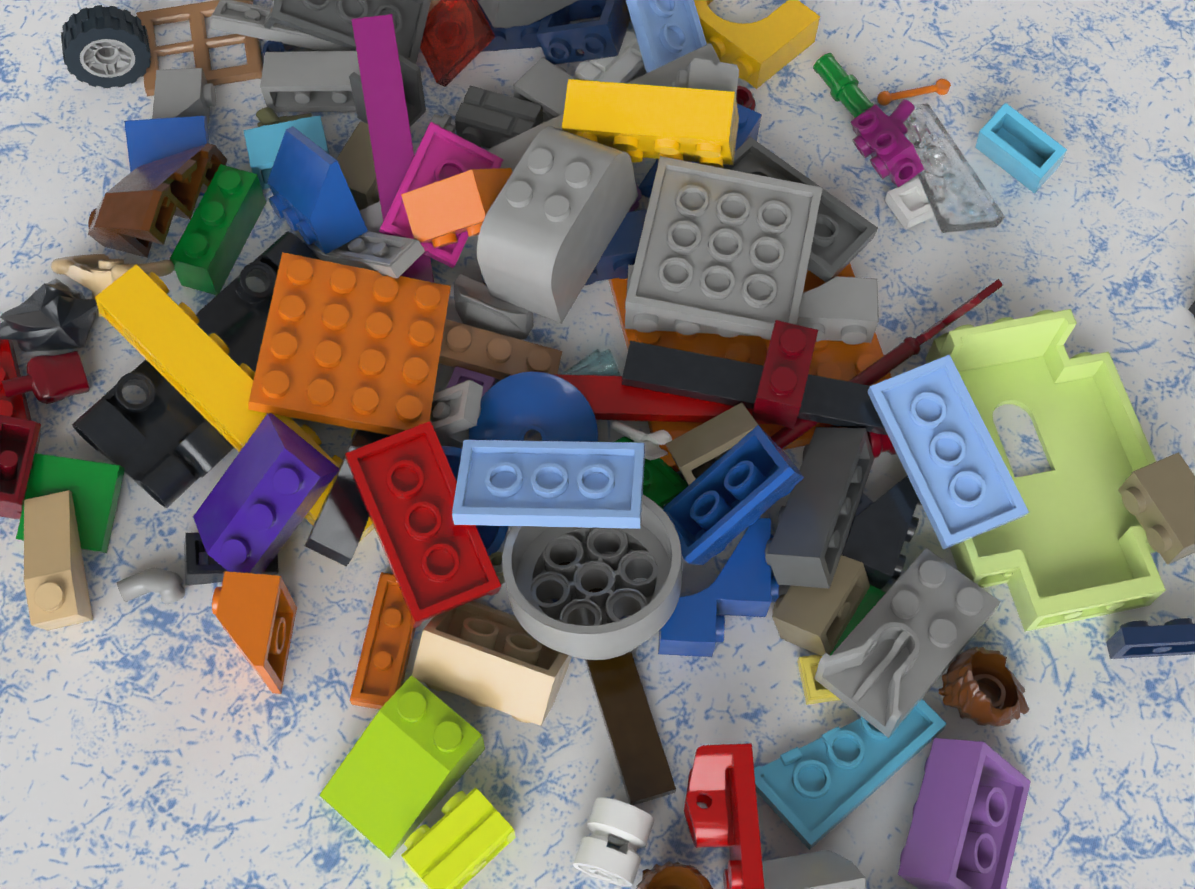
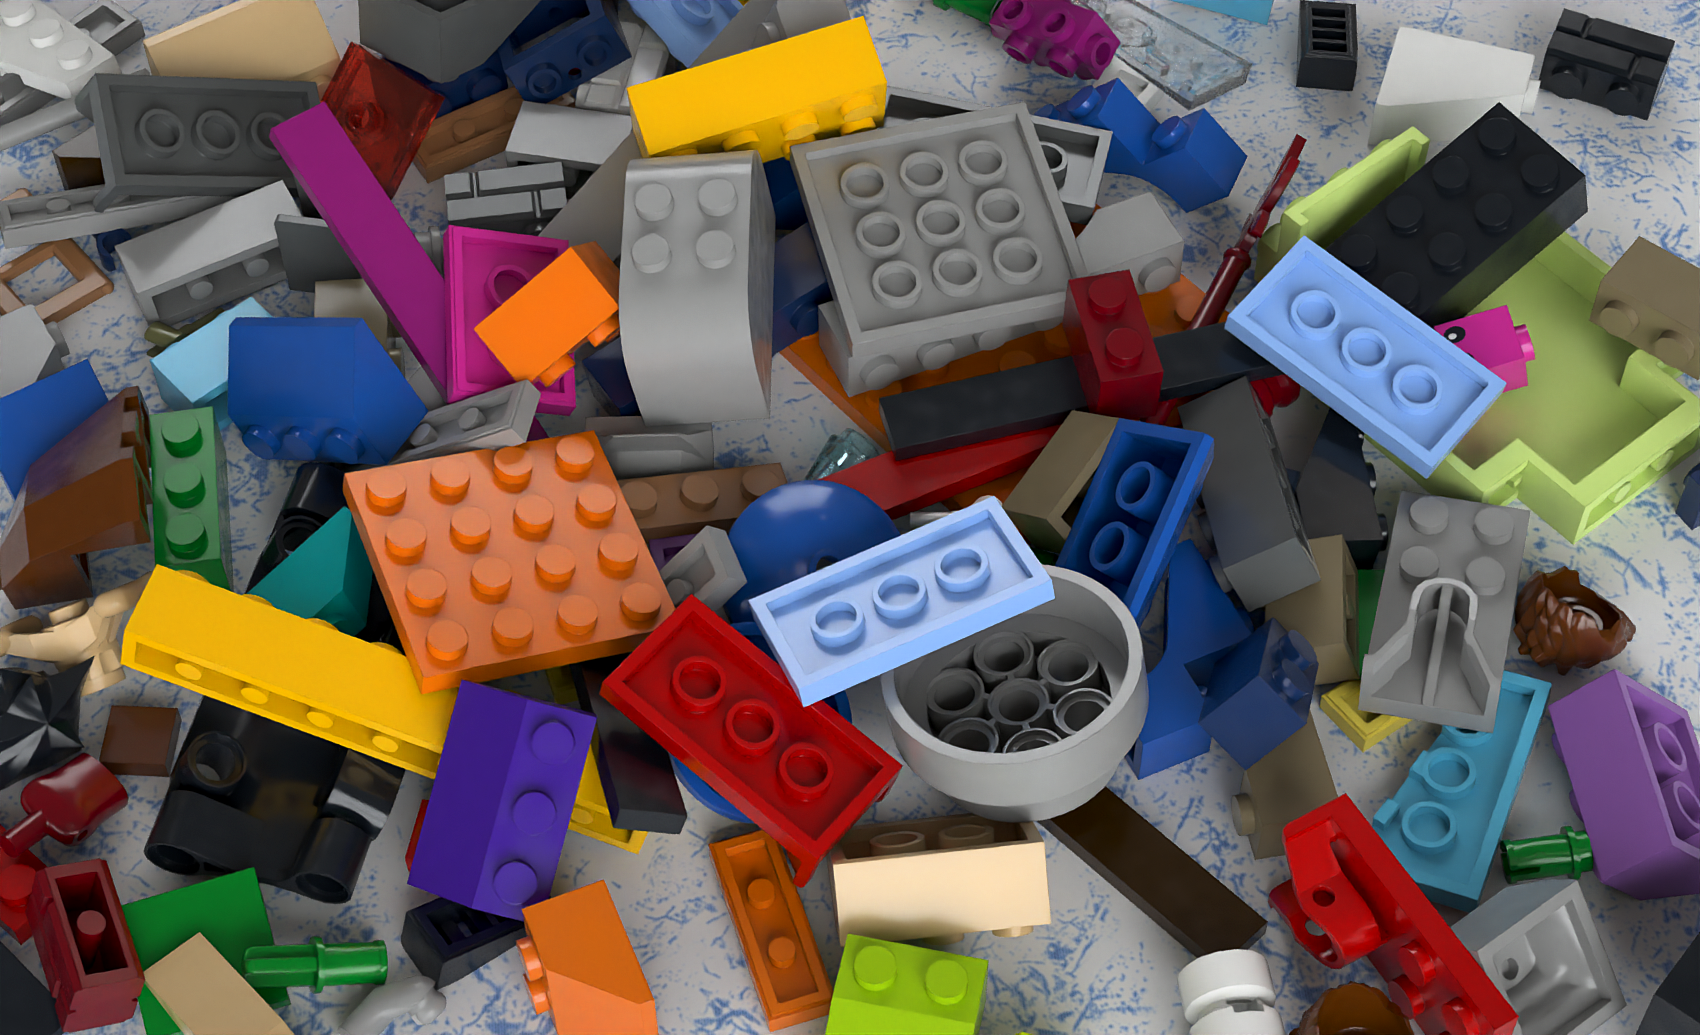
camera: 25 degrees left, 10 degrees down
(115, 356) = (140, 740): none -> reddish brown tile
(121, 539) = (315, 964): none -> green axle
(241, 314) = (324, 577): none -> teal slope
(508, 64) = (472, 133): none -> medium nougat tile
(737, 706) = (1281, 789): none -> dark tan slope
(747, 644) = (1260, 693): none -> dark blue brick
(877, 835) = (1547, 856): none -> green pin
(919, 260) = (1182, 156): none -> blue arch
(1038, 479) = (1493, 343): none -> dark pink brick
(1053, 241) = (1327, 45): none -> black slope
(1064, 389) = (1466, 219): none -> black brick
(1124, 289) = (1448, 85): none -> white slope

